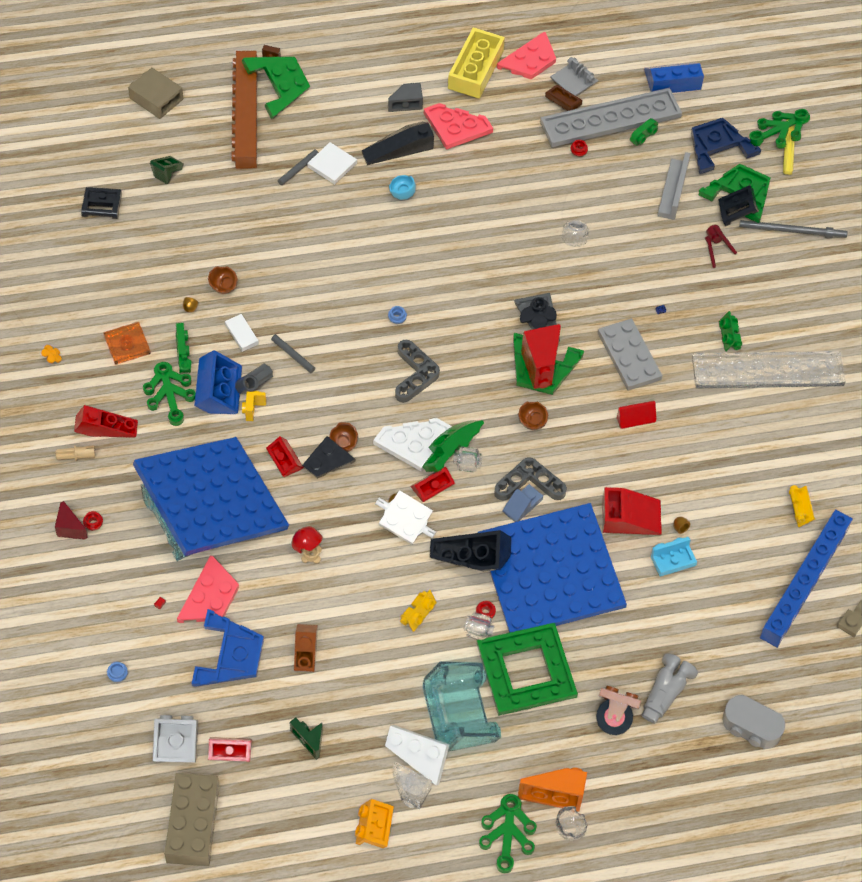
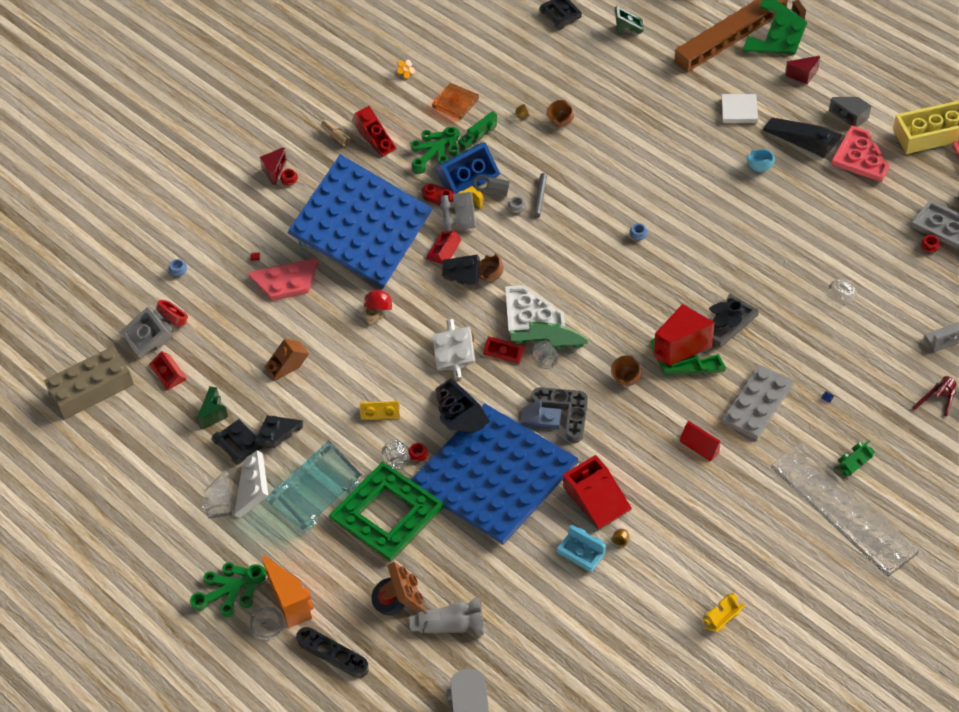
camera: 60 degrees right, 5 degrees down
(169, 705) = (172, 313): none -> red plate
(223, 423) = (433, 193): none -> red plate
(238, 653) = (246, 324): blue wing -> none
(241, 332) = (528, 155): white tile -> none
(267, 416) = (464, 211): none -> light grey plate
(289, 376) = (516, 204): none -> light grey plate
(297, 167) = (711, 92): dark grey bar -> none
(335, 96) = (802, 69): none -> dark red slope
(359, 732) = (241, 437): none -> black plate
(374, 823) = (169, 495): light orange bracket -> none
(375, 700) = (276, 430): none -> black wing
(420, 374) = (603, 279): dark grey beam -> none
(632, 794) = (334, 649): none -> black beam
(806, 578) = (651, 660): blue brick -> none

